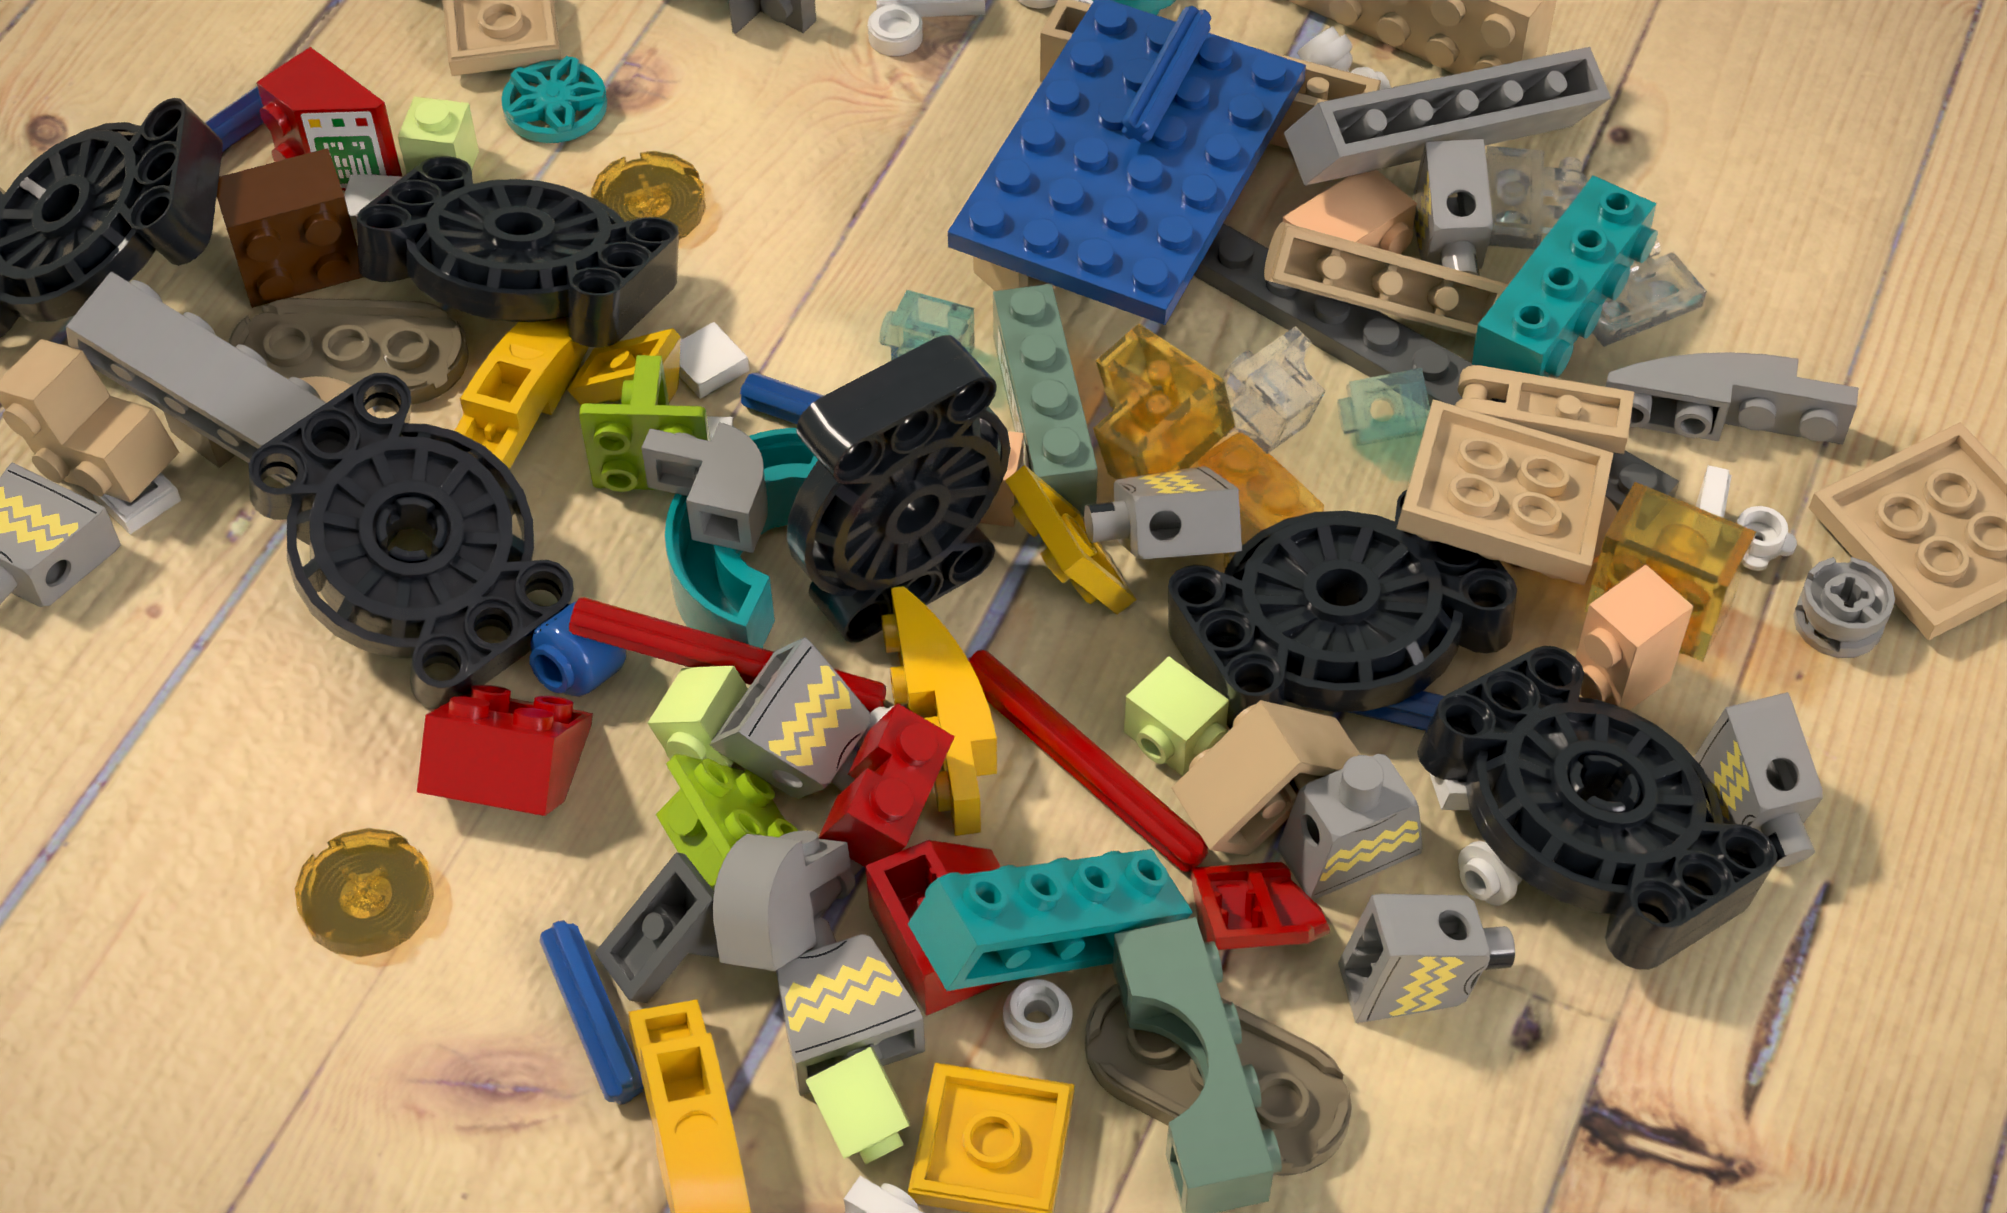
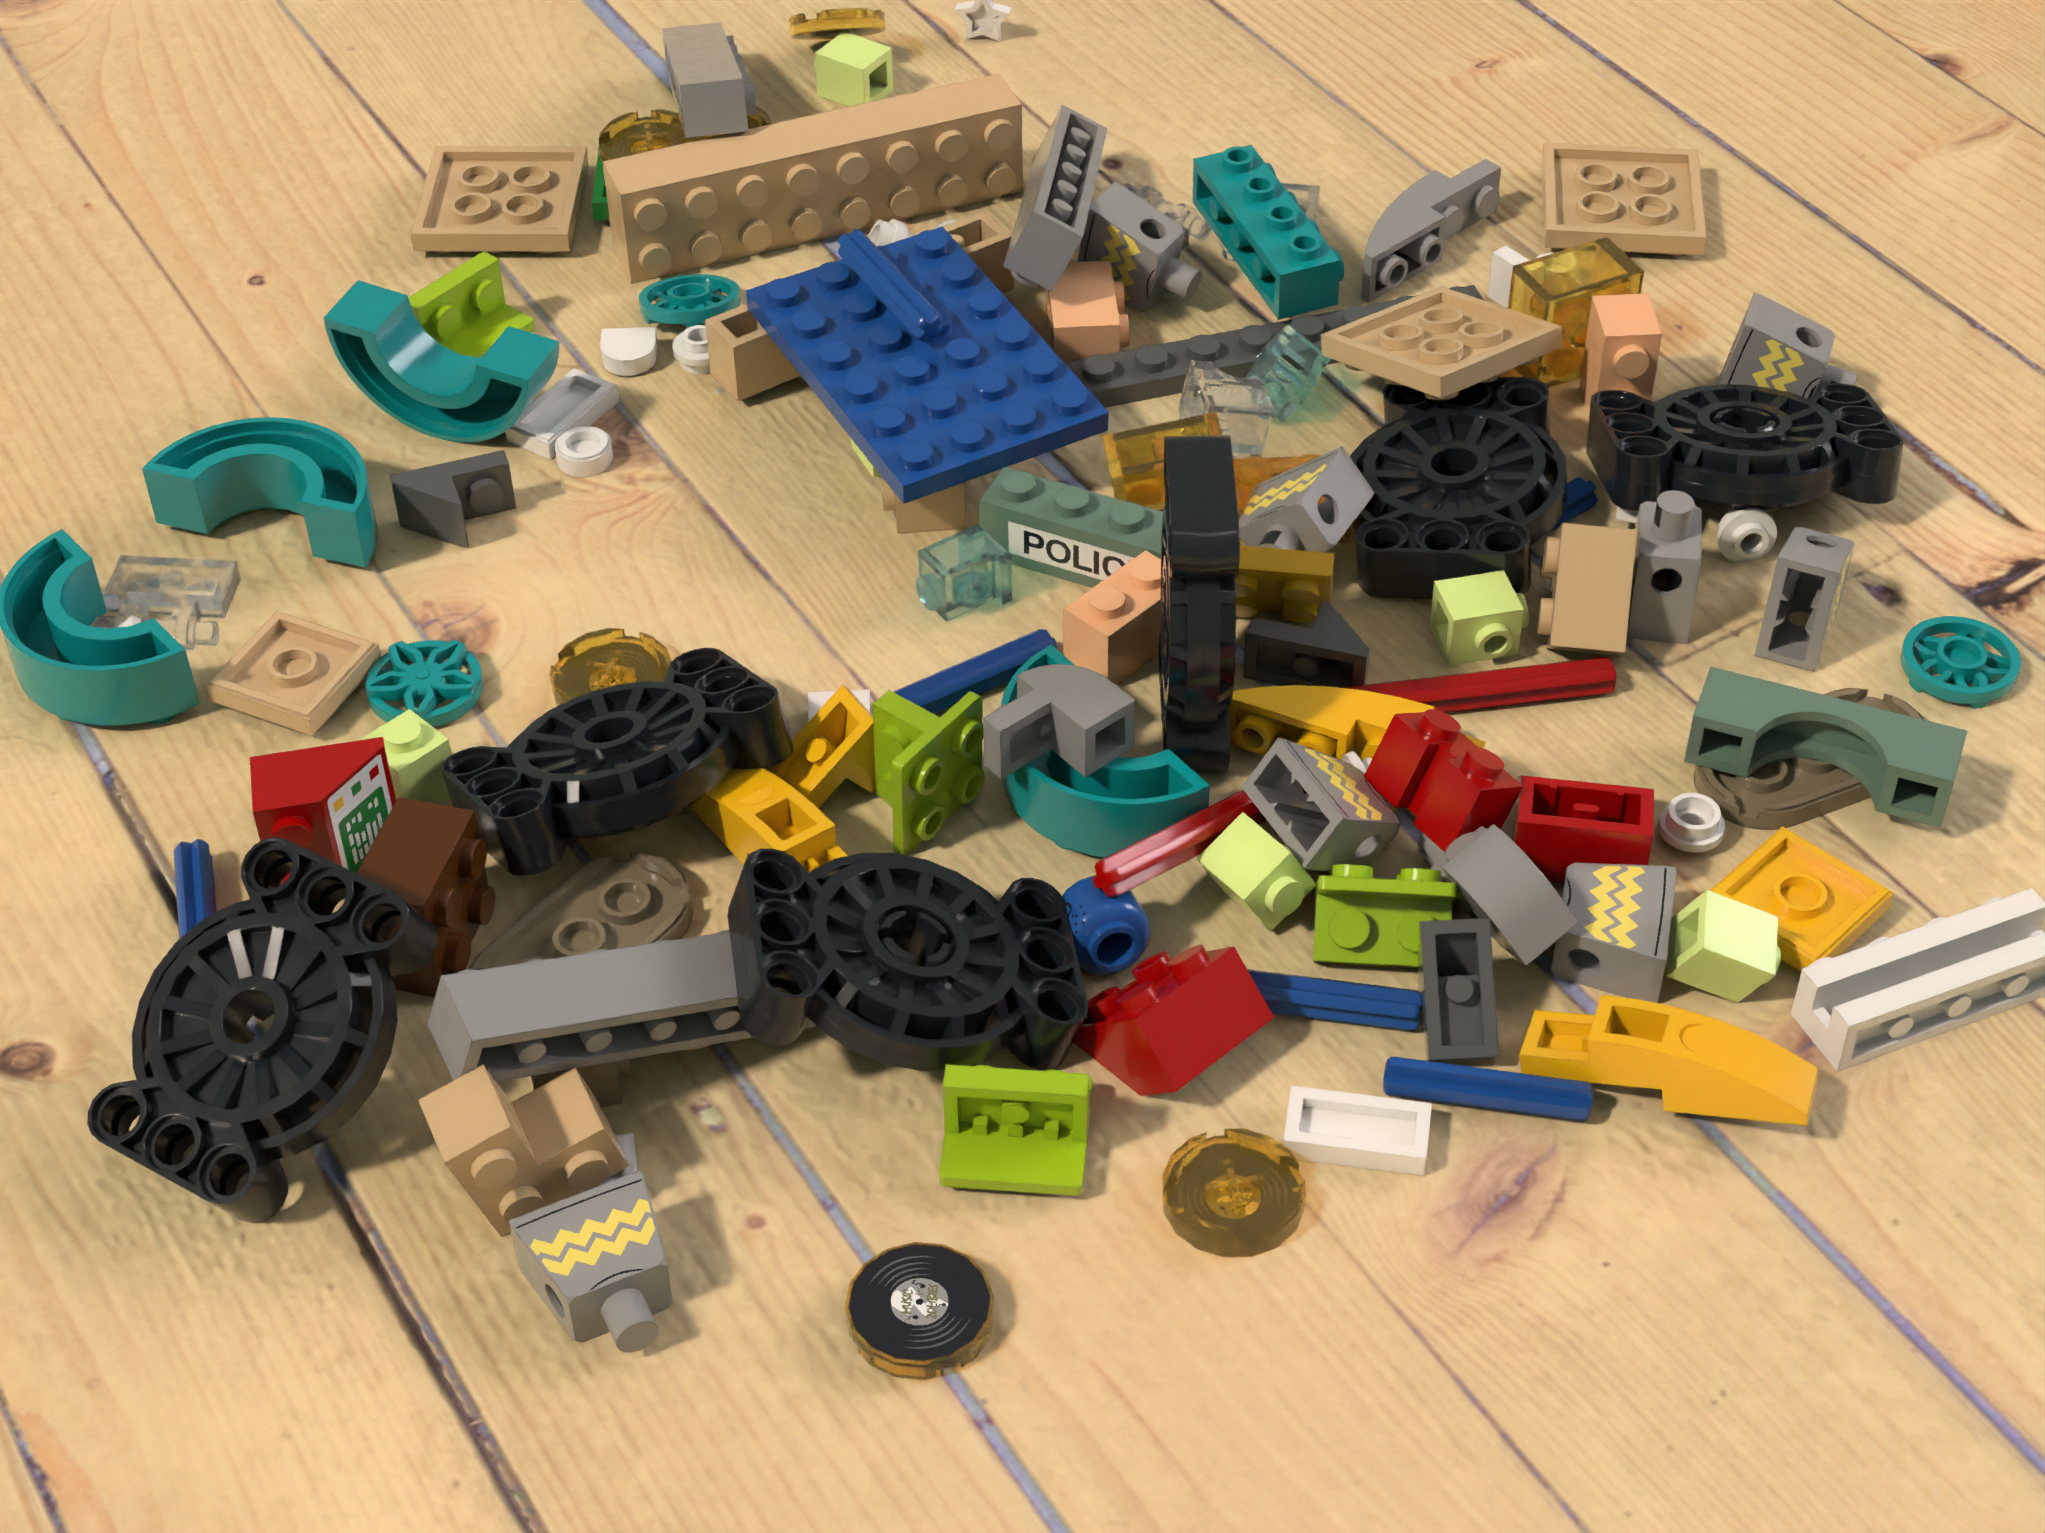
camera: 55 degrees left, 10 degrees down
(116, 754) = (919, 1310): none -> black tile
(329, 711) = (1015, 1129): none -> lime bracket
(487, 943) = (1358, 1130): none -> white tile
(610, 829) = (1339, 1000): none -> blue axle
(1030, 626) = (1305, 656): none -> dark grey slope
(1041, 916) = (1650, 741): teal brick -> none
(1254, 906) = (1675, 671): red slope -> none
(1379, 279) = (1168, 311): tan brick -> none
(1464, 1138) = (1960, 660): none -> teal wheel
(1551, 405) = (1370, 290): tan plate -> none
(1845, 606) = (1664, 265): light grey wheel -> none

